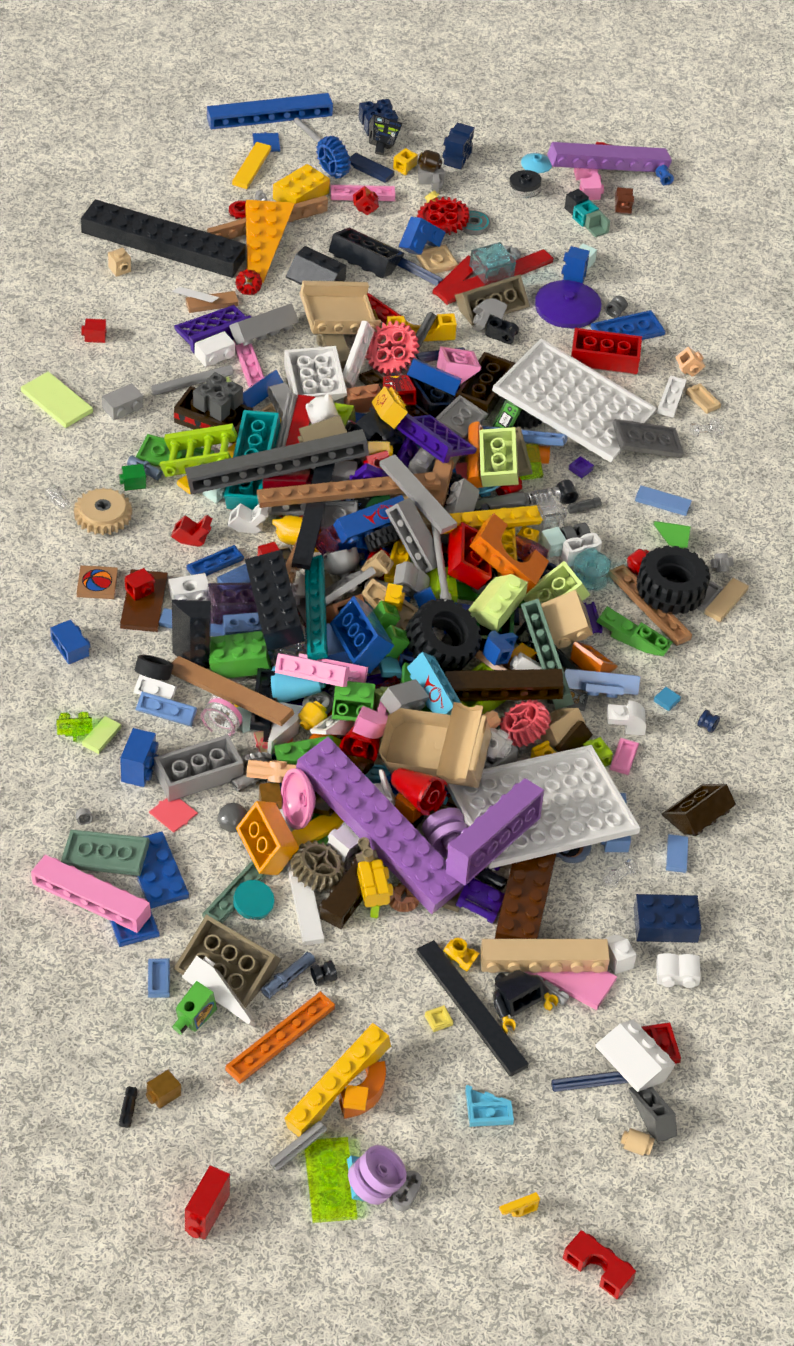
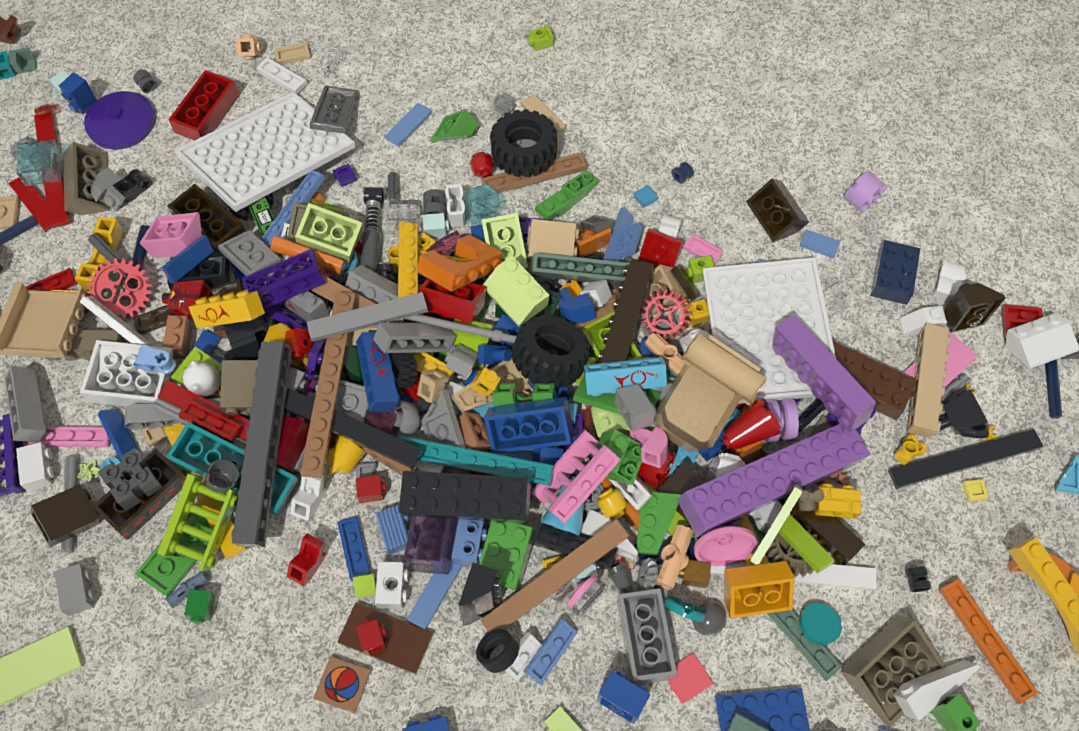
camera: 70 degrees left, 15 degrees up
(102, 511) = (249, 663): tan gear -> none
(178, 373) = (65, 515): none -> dark brown brick
(184, 570) = (364, 585): none -> lime tile
(229, 783) = (684, 609): none -> teal tile
(238, 444) = (222, 476): none -> dark grey hair
(249, 743) = (620, 577): none -> dark grey cone
(282, 979) = (914, 612): sand blue pin -> none
(288, 428) = (210, 421): none -> red tile
(321, 861) = (805, 545): none -> lime tile
(327, 822) = (776, 525): none -> yellowish green tile
(328, 382) = (154, 360): none -> light blue piece
(554, 253) = (45, 109): none -> clear red tile
(600, 711) = (660, 249): none -> red tile
(609, 658) = (595, 223): none -> dark grey tile
(637, 324) = (175, 80): blue tile -> none
(639, 973) = (971, 306): none -> dark brown slope
(756, 876) = (865, 191): none -> lavender brick

